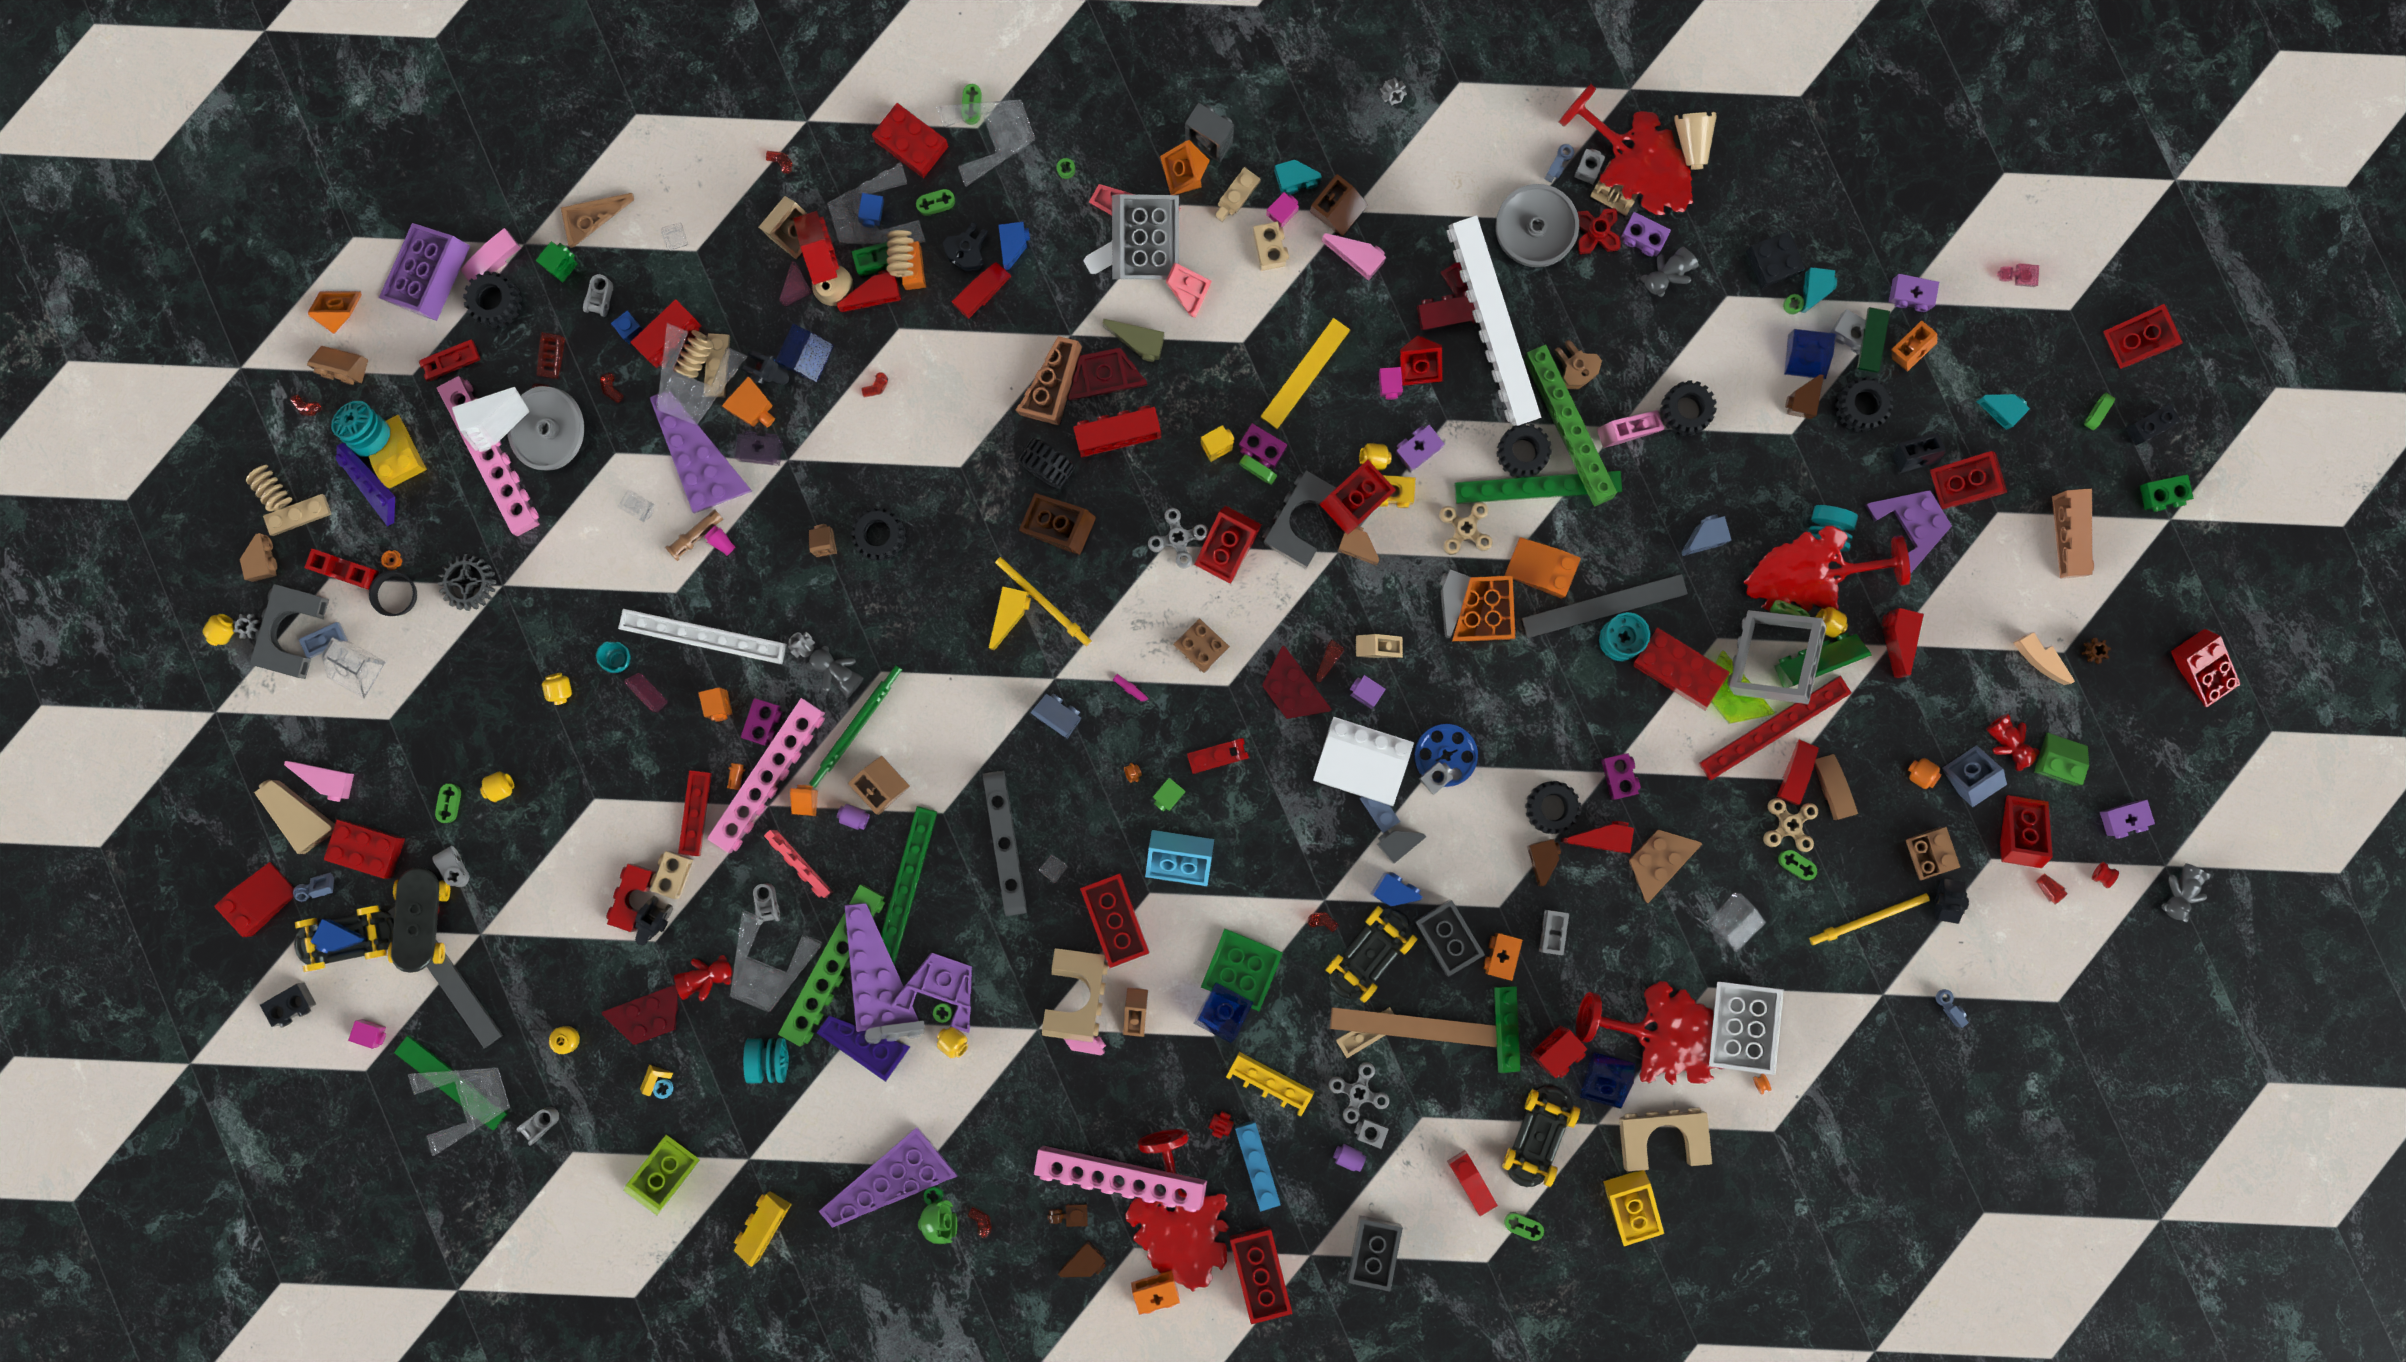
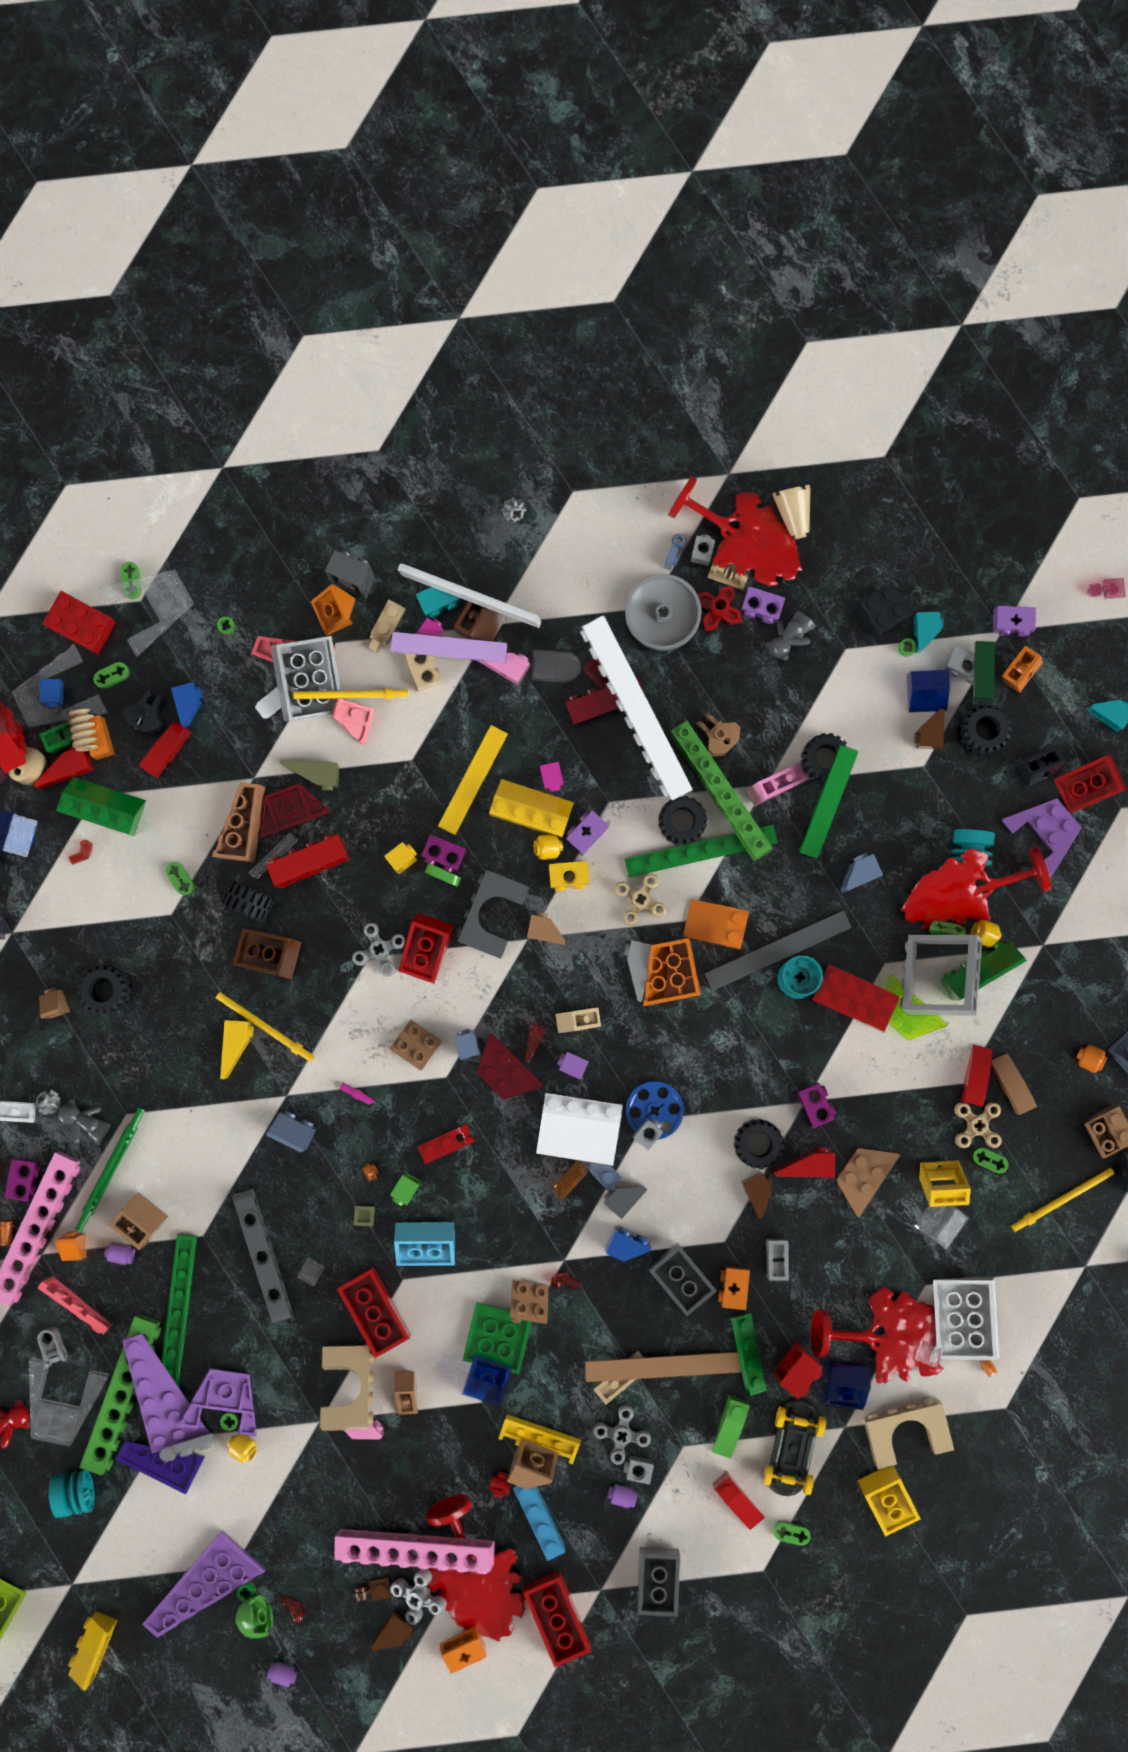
camera: 10 degrees left, 0 degrees up
(904, 340) = (101, 806): none -> green slope
(959, 1287) = (282, 1674): none -> medium lavender brick
(972, 432) = (183, 876): none -> bright green beam
(1088, 414) = (278, 850): none -> clear tile
(1116, 1228) = (418, 1596): none -> light grey gear
(1119, 818) = (364, 1215): none -> olive plate
(1227, 266) = (387, 693): none -> yellow bar
(1257, 652) = (467, 1044): none -> sand blue brick
(1259, 1108) = (532, 1465): none -> medium nougat slope
(1281, 936) = (529, 1302): none -> medium nougat hinge
(1302, 227) = (449, 647): none -> lavender tile
(1334, 174) = (469, 595): none -> white tile
(1345, 813) = (570, 1179): none -> clear orange slope
(1357, 497) = (536, 888): red slope -> none
(1363, 414) = (531, 808): none -> yellow slope
(1370, 954) = (613, 1303): pearl dark grey piece -> none
(1411, 266) = (555, 666): none -> clear window
(1421, 362) = (576, 753): red slope -> none
(1476, 1103) = (730, 1426): none -> bright green slope
(1684, 454) = (828, 801): none -> green tile
(1701, 1058) = (929, 1354): none -> clear slope
(1746, 889) = (944, 1194): none -> yellow window
(1774, 728) = (949, 1038): red tile -> none
(1901, 639) = (1051, 935): red slope -> none

